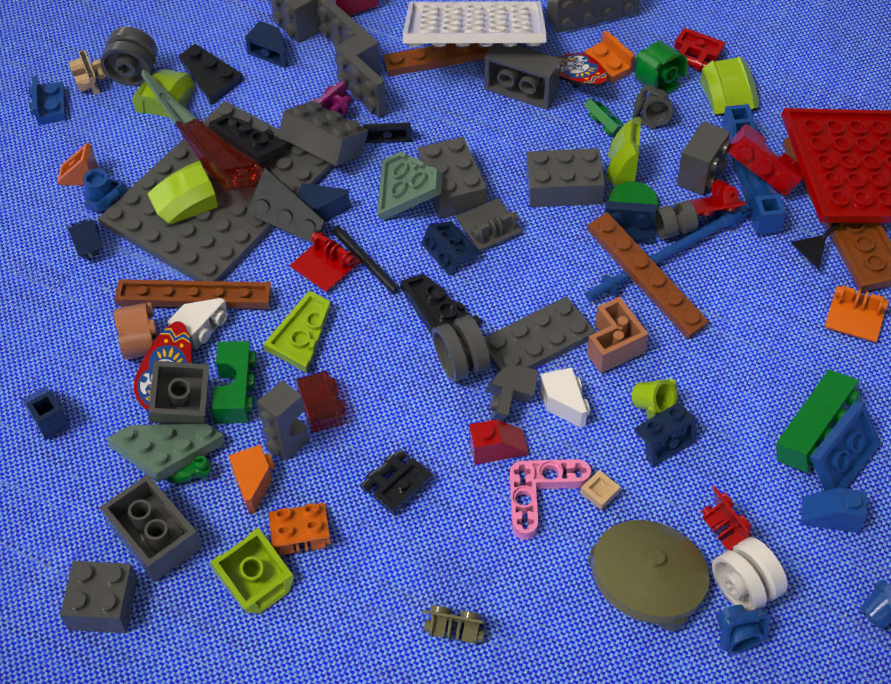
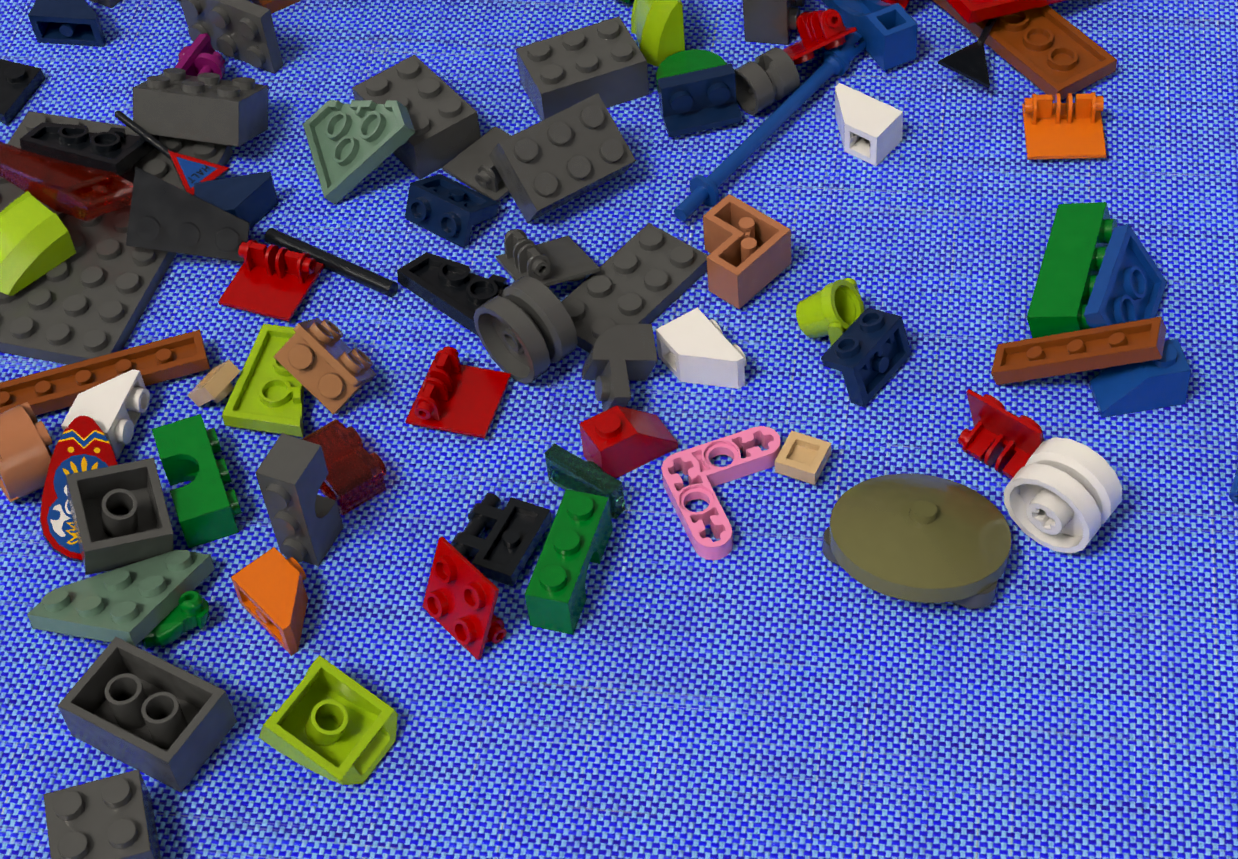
camera: 15 degrees left, 5 degrees down
(267, 322) = (215, 384): none -> tan plate
(299, 526) = (377, 640): orange hinge -> none
(303, 172) = (189, 169): none -> piece
(335, 330) = (325, 363): none -> medium nougat bracket
(357, 518) = (462, 600): none -> red hinge
(388, 132) = (298, 84): black slope -> none
(407, 377) = (458, 396): none -> red hinge
(420, 522) = (558, 581): none -> green arch
(438, 623) = (686, 680): olive hinge -> none
(461, 460) = (583, 476): none -> plate
(492, 303) = (547, 262): none -> dark grey hinge
(527, 236) = (562, 157): none -> dark grey brick
(647, 275) = (754, 161): dark orange plate -> none
(729, 272) = (866, 125): none -> white slope
(739, 630) = (1077, 572): blue piece -> none
(800, 478) = (1079, 351): none -> dark orange plate

